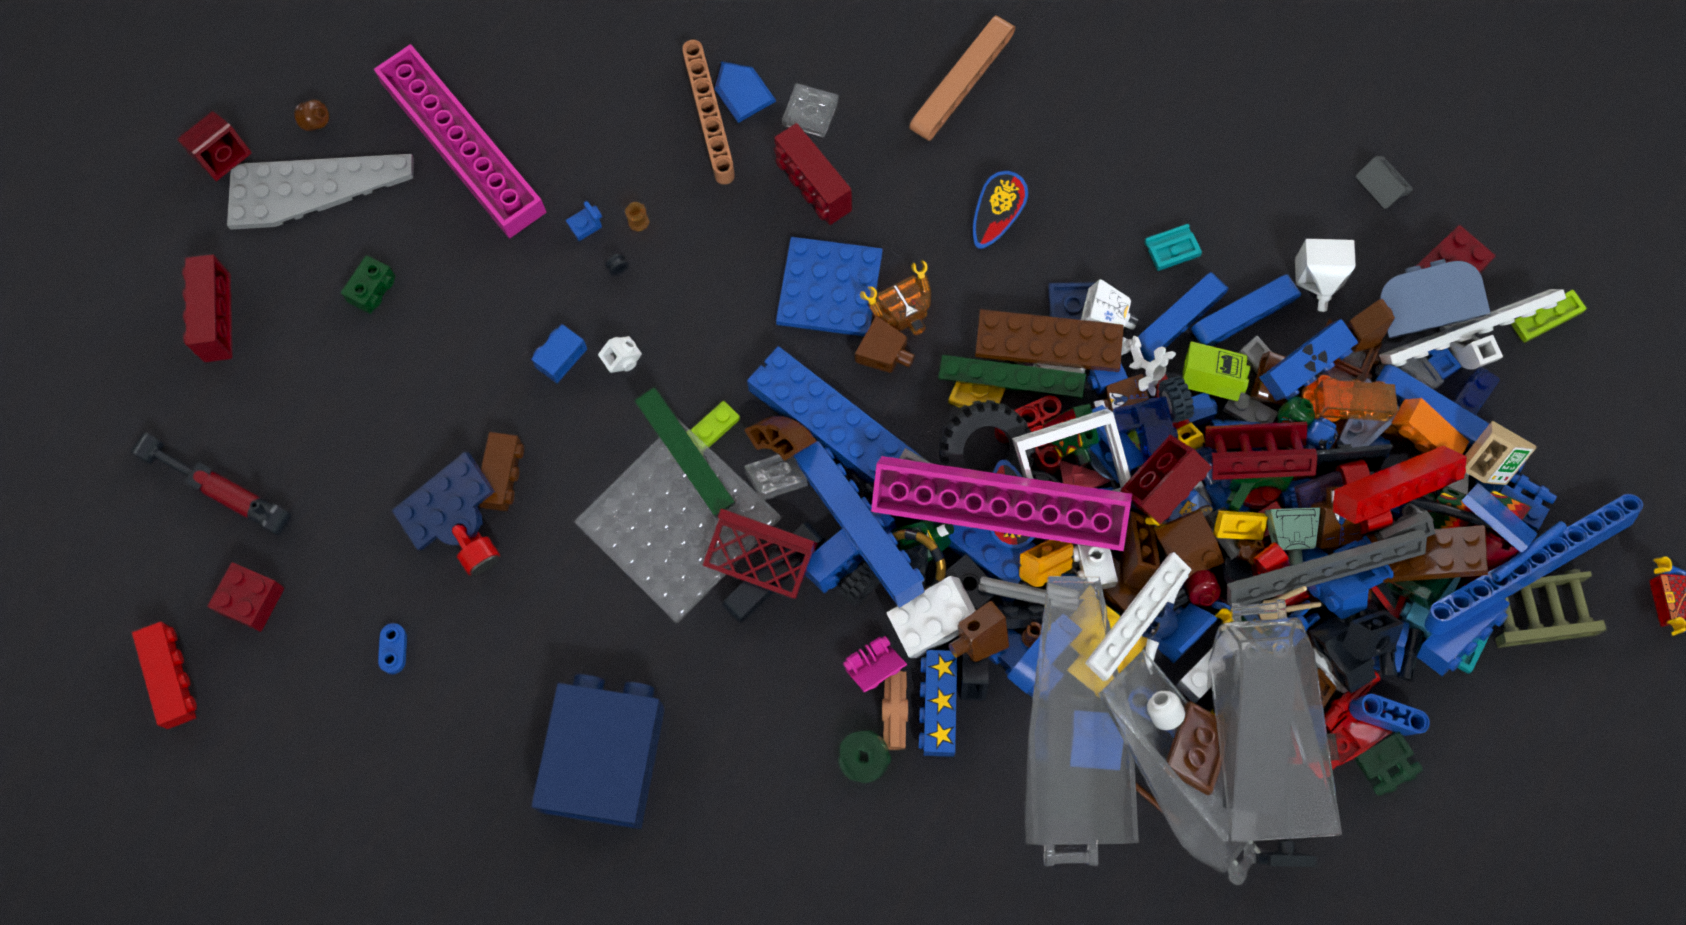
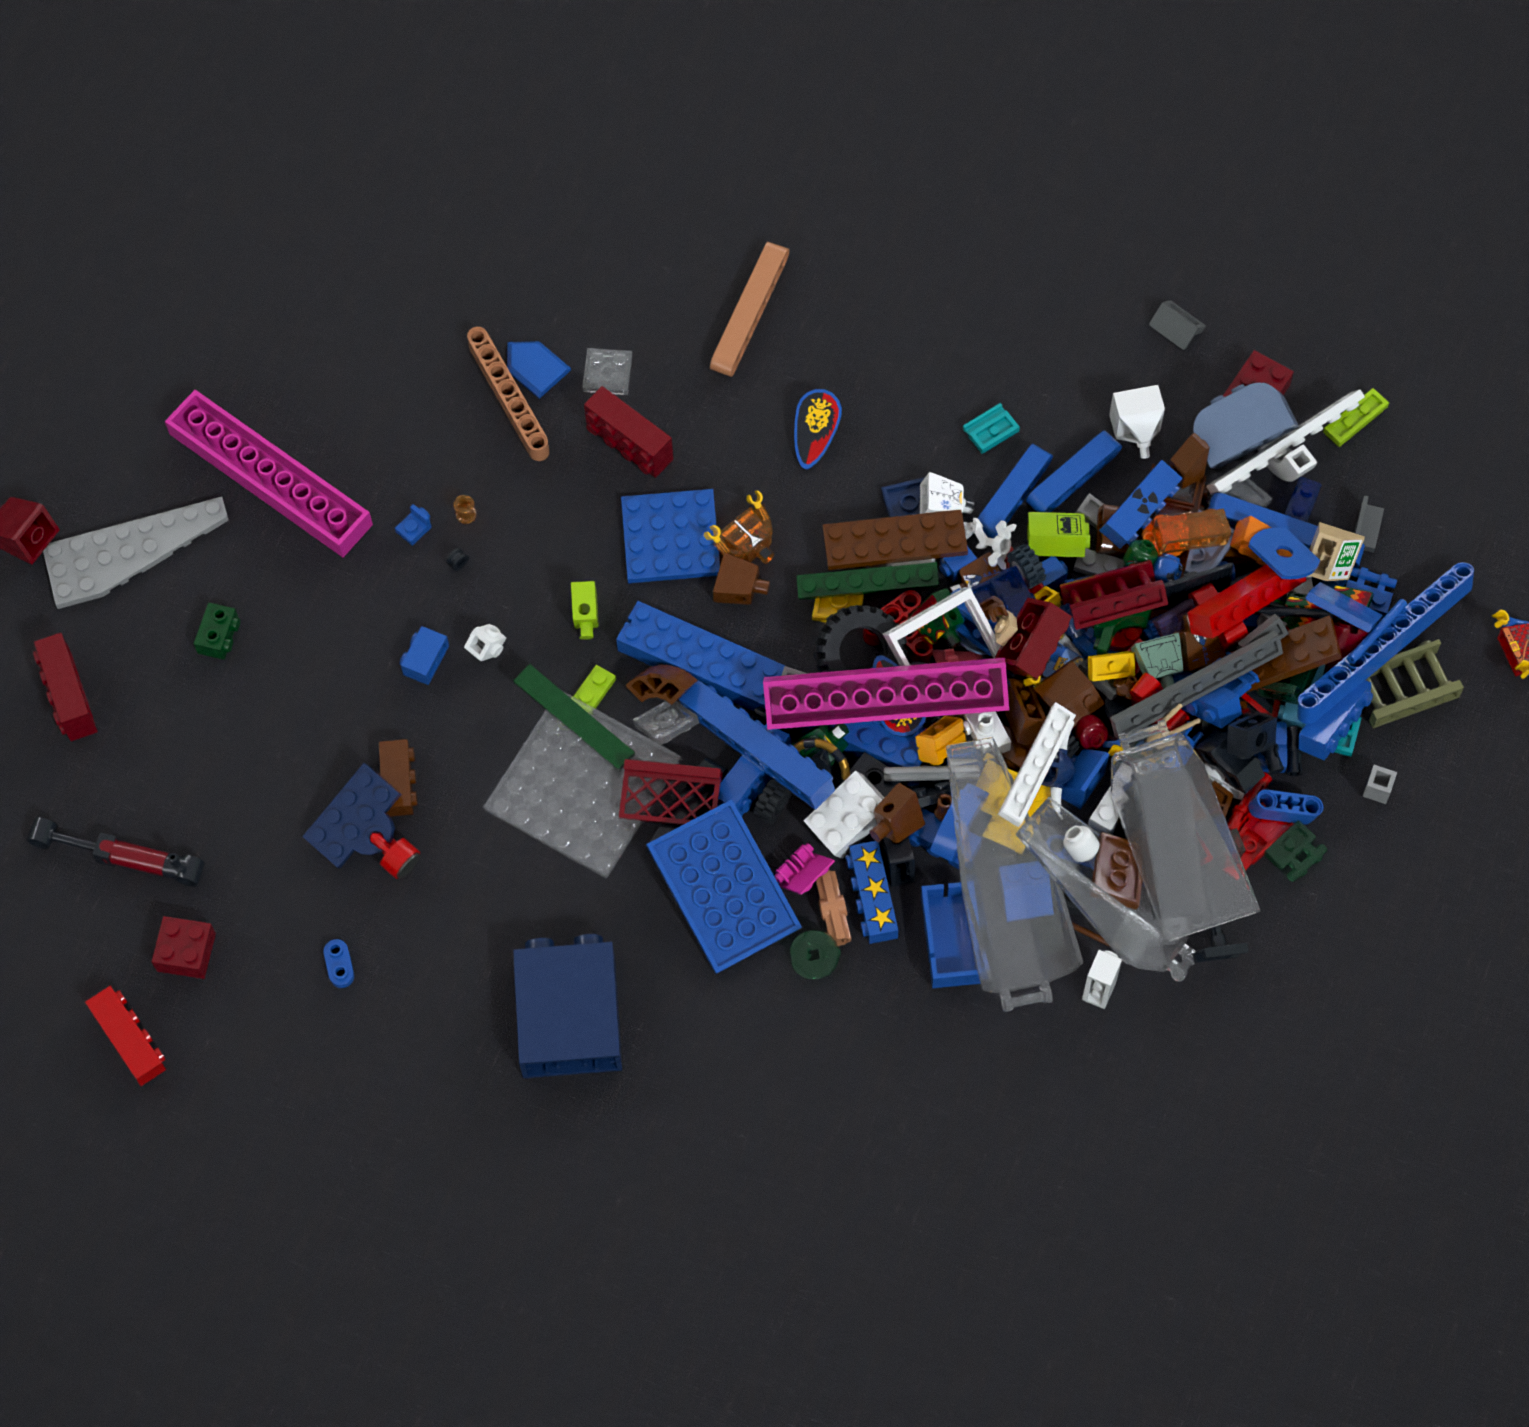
camera: 15 degrees left, 5 degrees down
(311, 115) = (111, 480): reddish brown head -> none
(726, 332) = (584, 602): none -> lime torso
(789, 663) = (723, 886): none -> blue plate
(1004, 771) = (948, 937): none -> blue piece
(1131, 437) = (993, 608): none -> reddish brown plate
(1140, 460) = (1005, 628): none -> tan plate
(1155, 860) = (1102, 978): none -> white brick
(1443, 362) = (1267, 480): blue plate -> none
(1457, 464) = (1298, 566): none -> blue piece
(1494, 713) = (1379, 784): none -> light grey brick
(1539, 428) = (1369, 524): none -> dark grey panel

